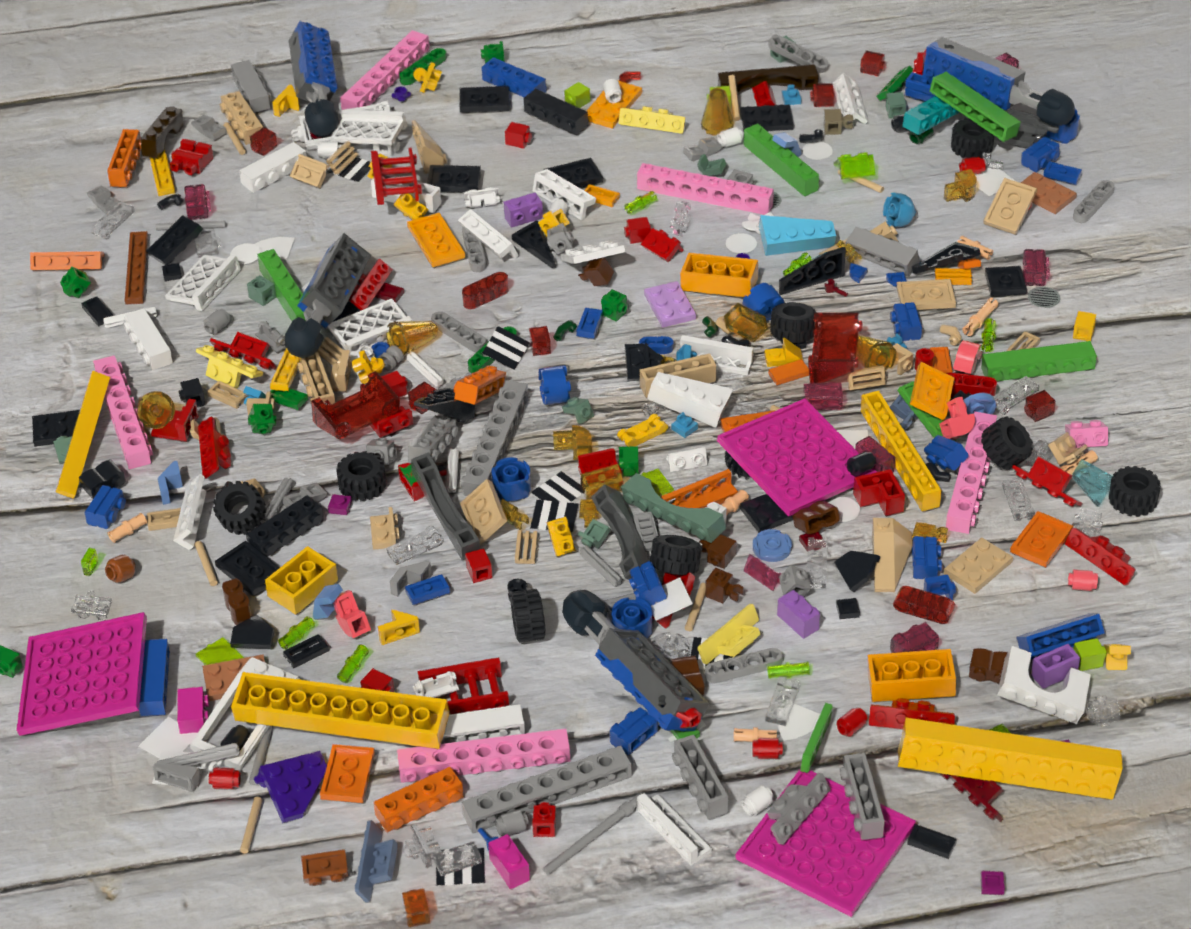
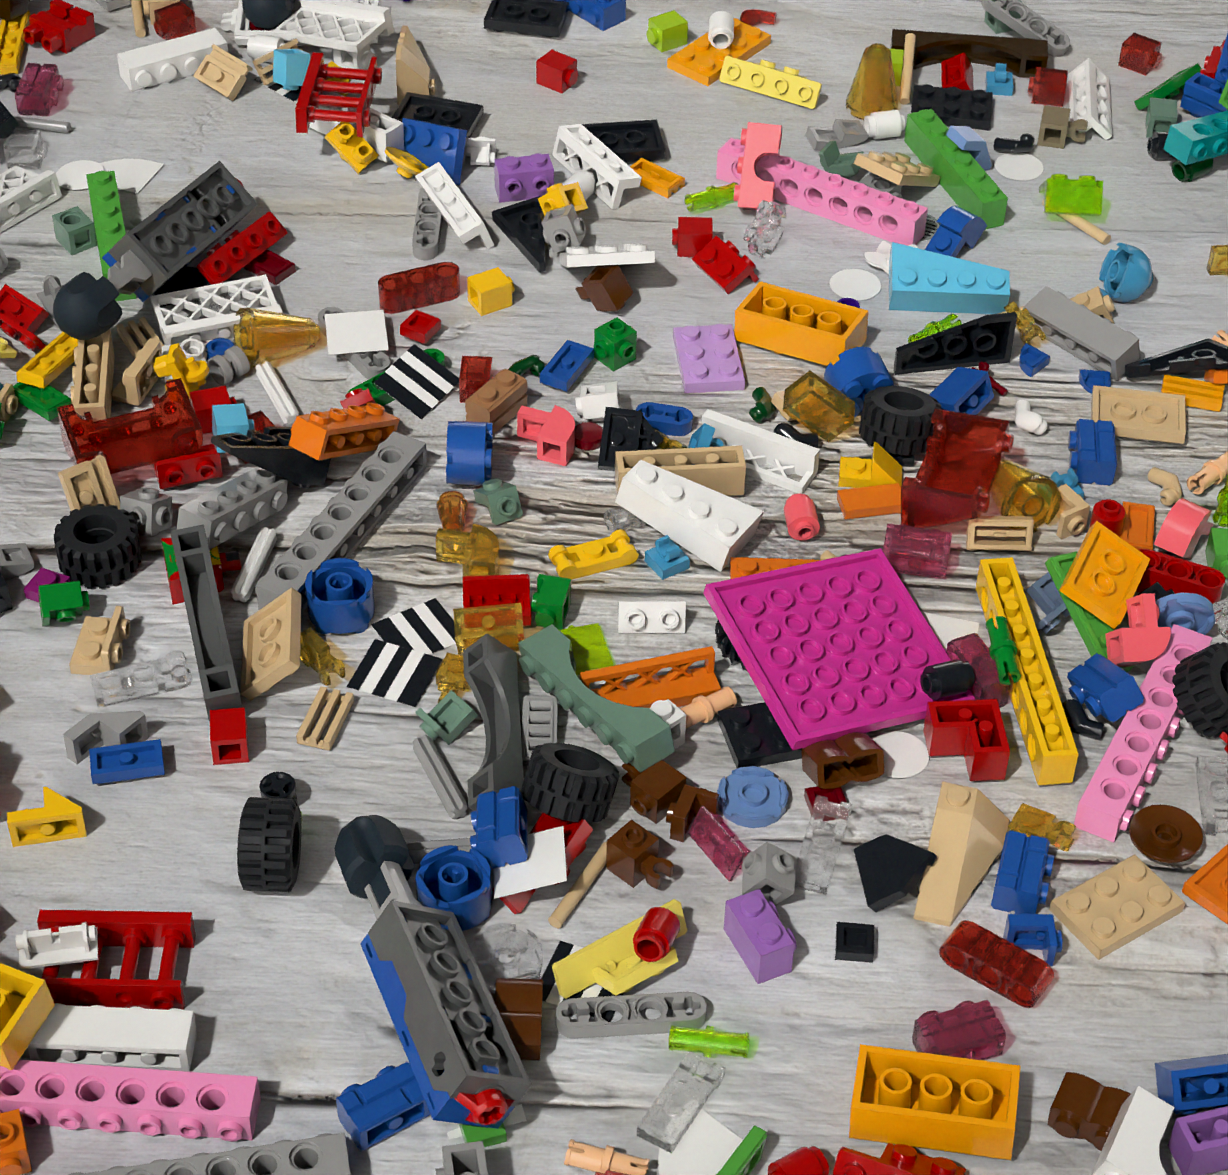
camera: 10 degrees right, 0 degrees up
(344, 442) = (89, 484): none -> tan plate
(352, 161) = (290, 67): none -> medium azure brick
(354, 511) = (62, 602): none -> green brick
(413, 391) = (230, 419): none -> medium azure brick
(436, 239) = (373, 201): light orange plate -> none
(448, 212) = (406, 162): none -> yellow dish
(458, 324) = (356, 332): none -> white sticker
(462, 197) = (436, 144): none -> blue wing
(478, 364) = (358, 398): none -> plate
(494, 314) = (420, 326): none -> red plate
(528, 285) = (490, 291): none -> yellow brick
(554, 420) = (452, 510): none -> clear orange cone
(555, 111) = (626, 47): black brick -> none
(558, 350) = (497, 400): none -> medium nougat brick
(560, 536) = (386, 711): yellow hips -> none
(596, 363) = (551, 430): none -> coral brick
(615, 341) = (596, 398): none -> white brick
(615, 363) = (588, 436): none -> dark red tile
(664, 163) = (759, 141): none -> coral arch
(741, 556) = (683, 812): none -> reddish brown bracket
(747, 166) = (898, 169): none -> tan plate
(747, 621) = (656, 934): none -> red brick
(753, 388) = (801, 517): none -> coral brick
(792, 200) = (956, 229): none -> blue brick
(825, 299) = (964, 391): none -> blue brick
(864, 309) = (1028, 420): none -> white arm
(887, 442) = (1003, 650): none -> green pin
(995, 523) = (1166, 833): none -> reddish brown dish

